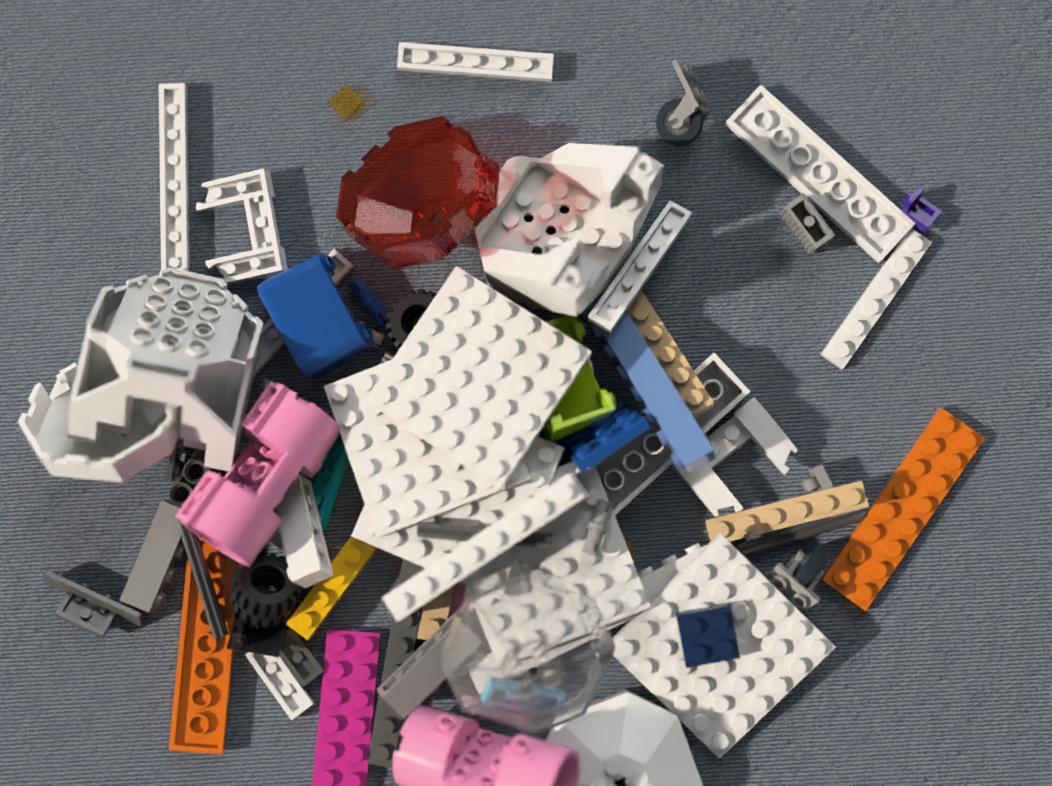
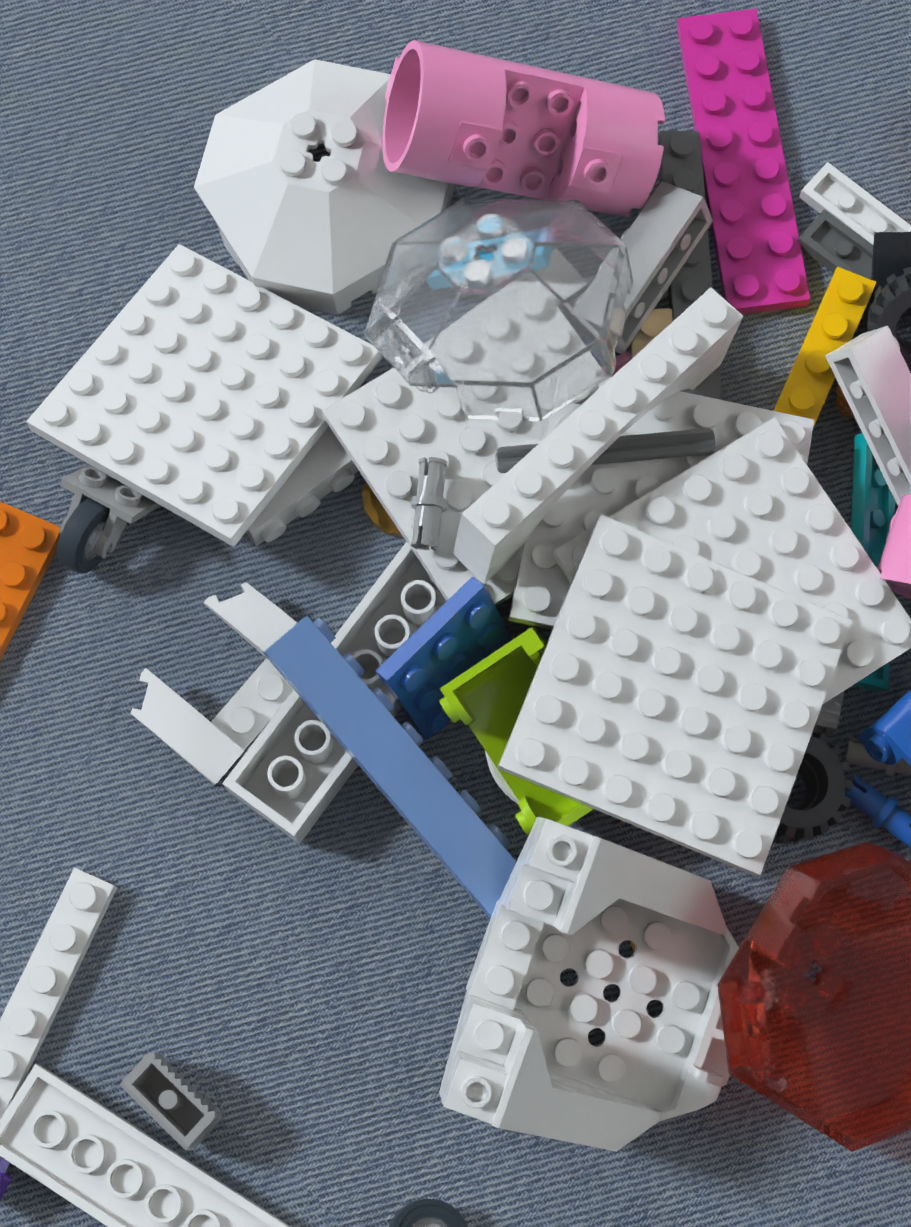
camera: 175 degrees right, 10 degrees down
(639, 267) = (445, 959): white plate -> none
(669, 356) = (382, 828): tan plate -> none
(707, 635) = (226, 391): dark blue plate -> none
(789, 512) = (129, 611): tan plate -> none
(799, 532) = (105, 594): dark grey axle -> none
(819, 479) = (91, 675): light grey tile -> none

